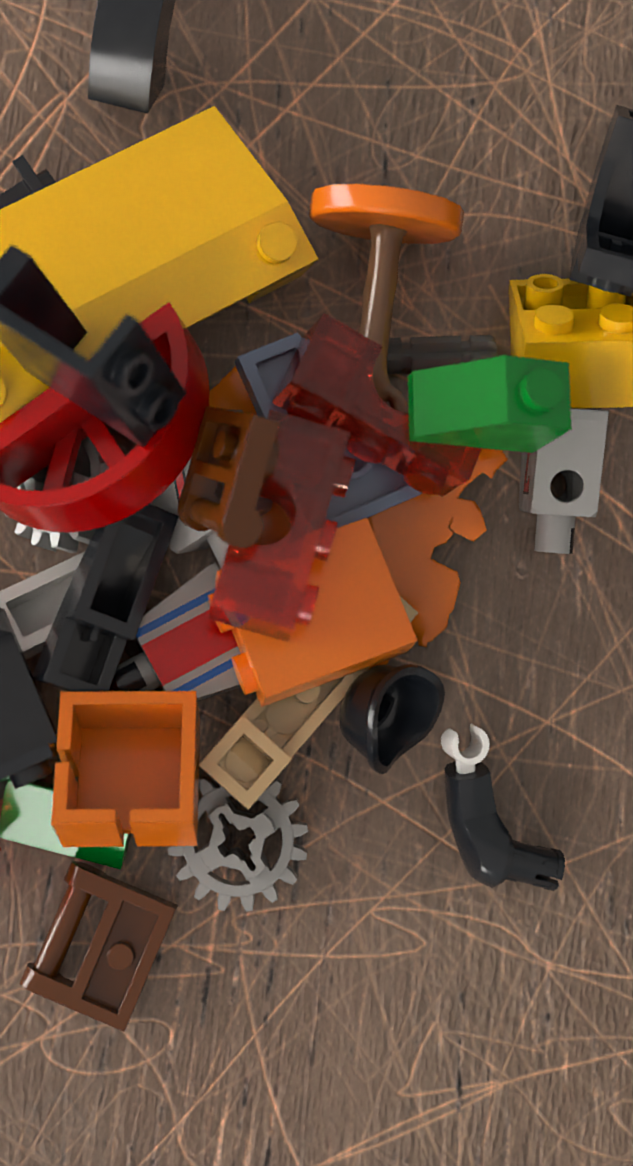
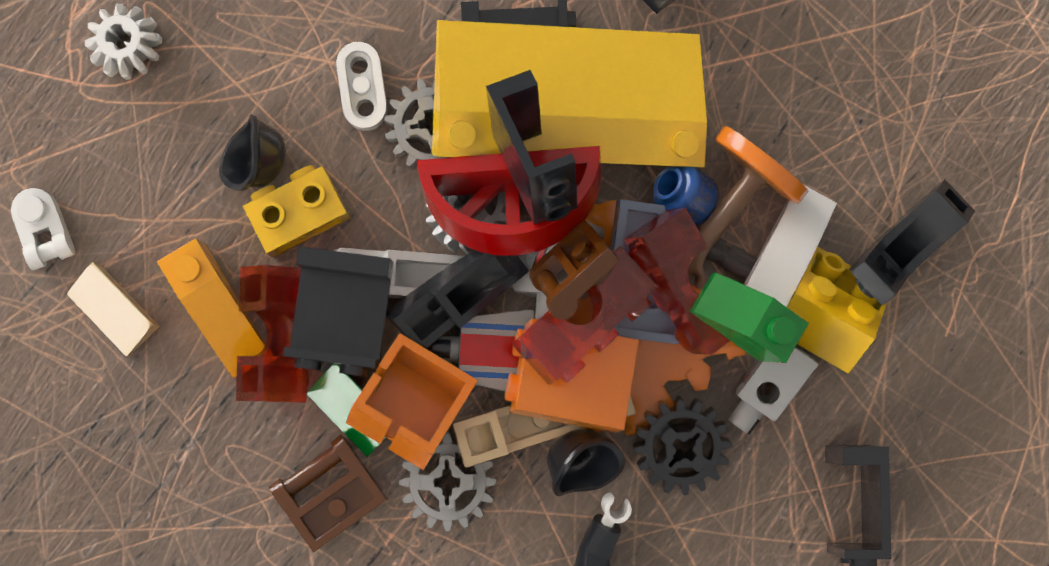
camera: 30 degrees right, 0 degrees up
(308, 294) = (688, 189): none -> blue head
(481, 291) = (790, 246): none -> white slope
(504, 593) = (692, 431): none -> black gear

